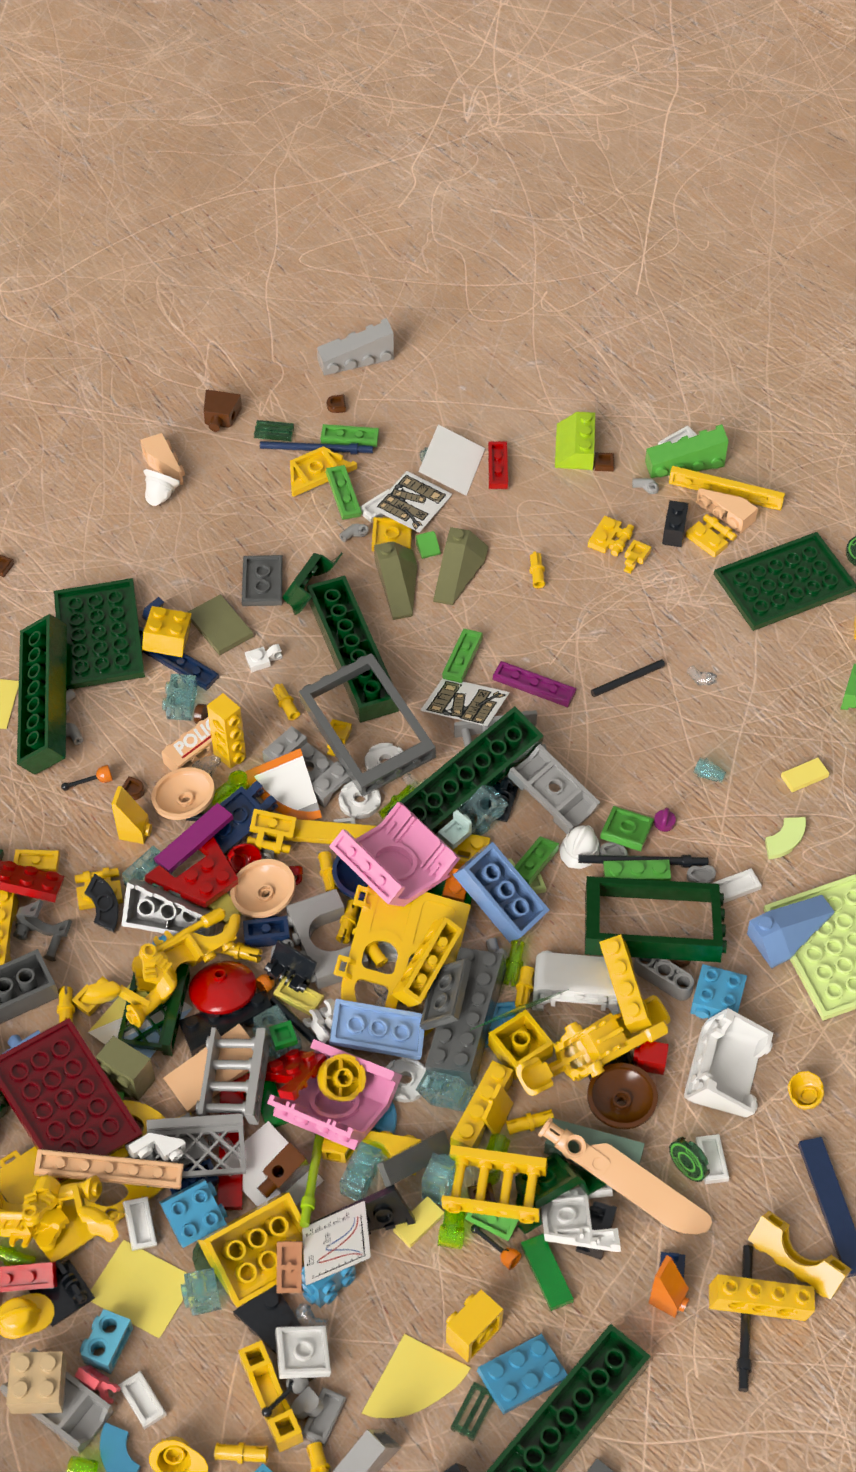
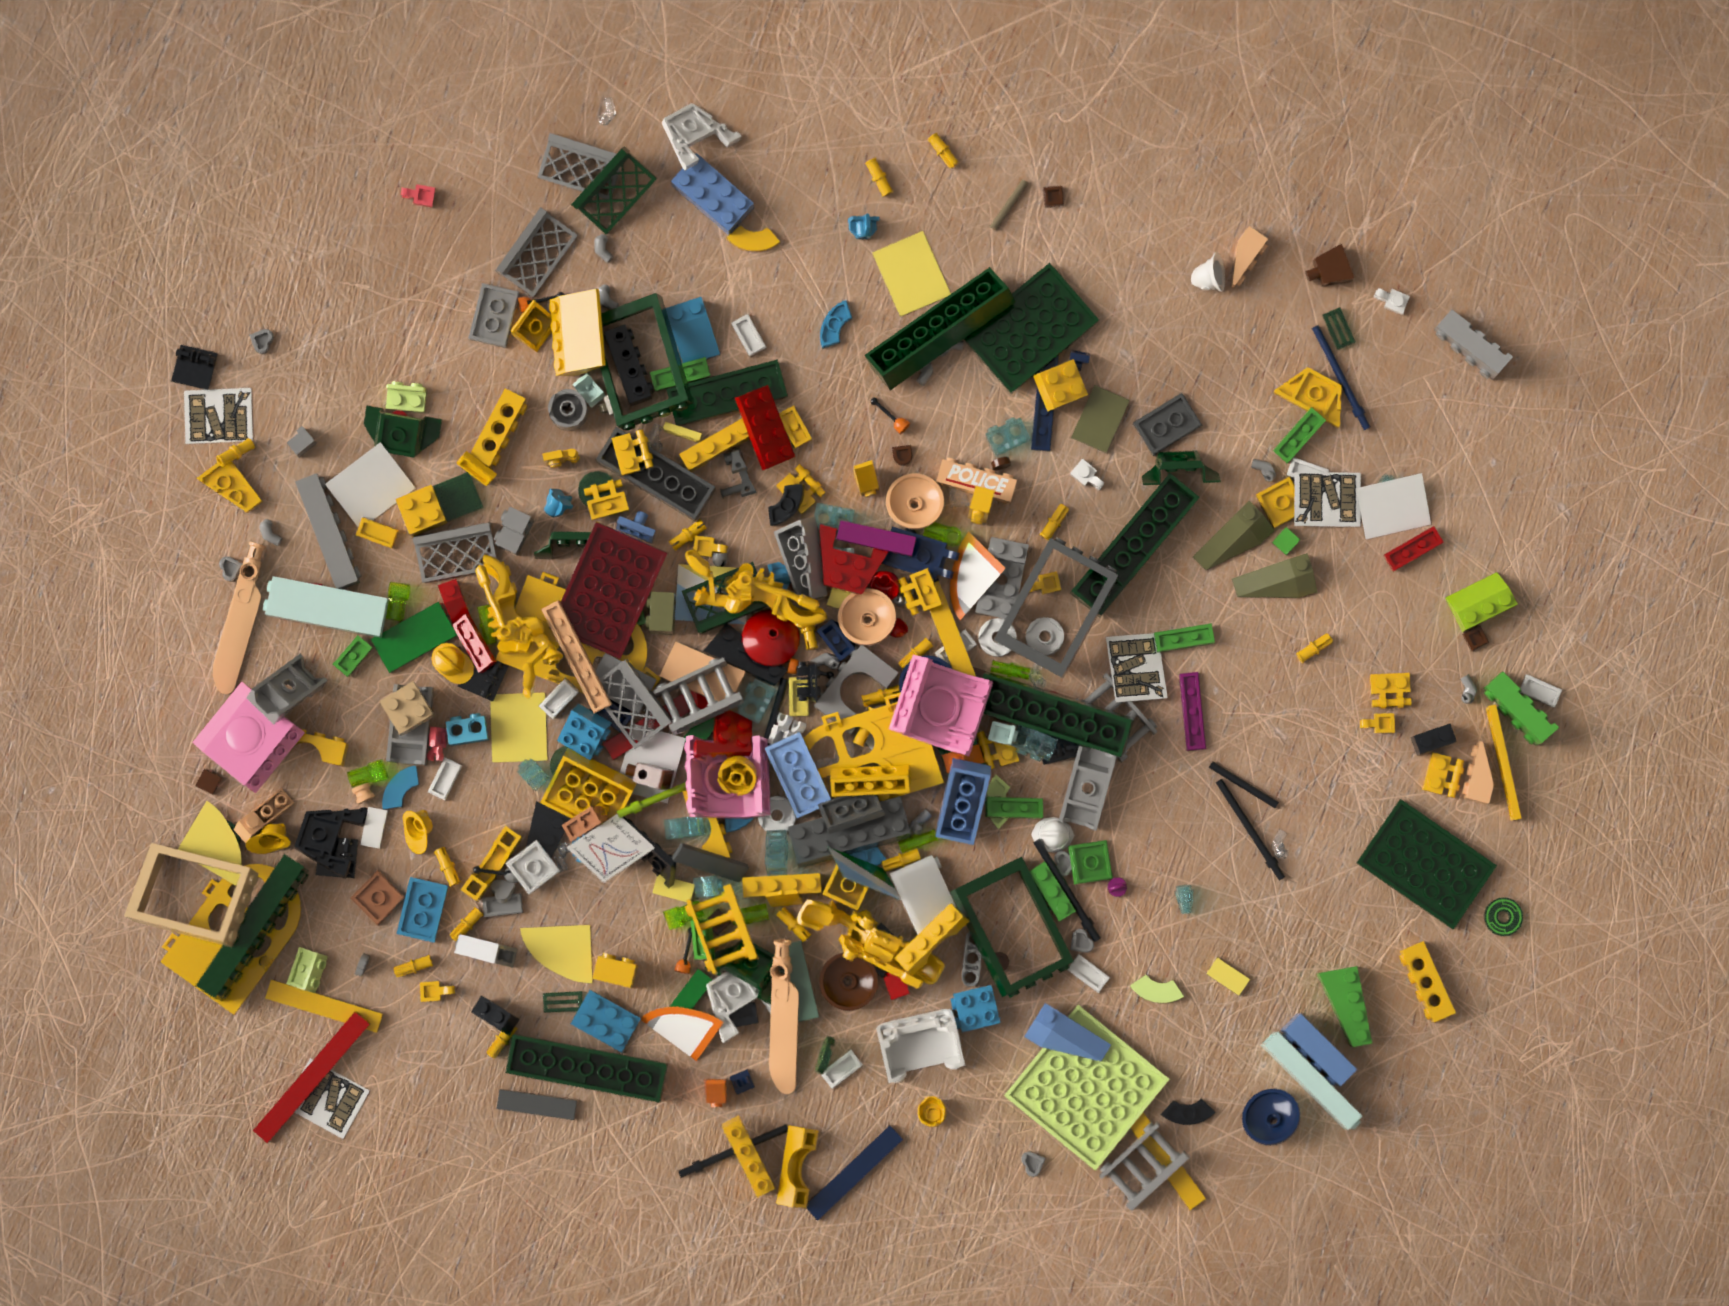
camera: 60 degrees right, 30 degrees up
(167, 1147) = (613, 686): white slope -> none
(281, 386) = (1394, 300): none -> white plate
(283, 1035) = (750, 711): green plate -> none
(336, 404) = (1404, 363): reddish brown tile -> none
(349, 434) = (1370, 399): bright green plate -> none
(579, 1289) = (684, 1028): none -> sticker
(714, 691) = (1271, 862): none -> black bar

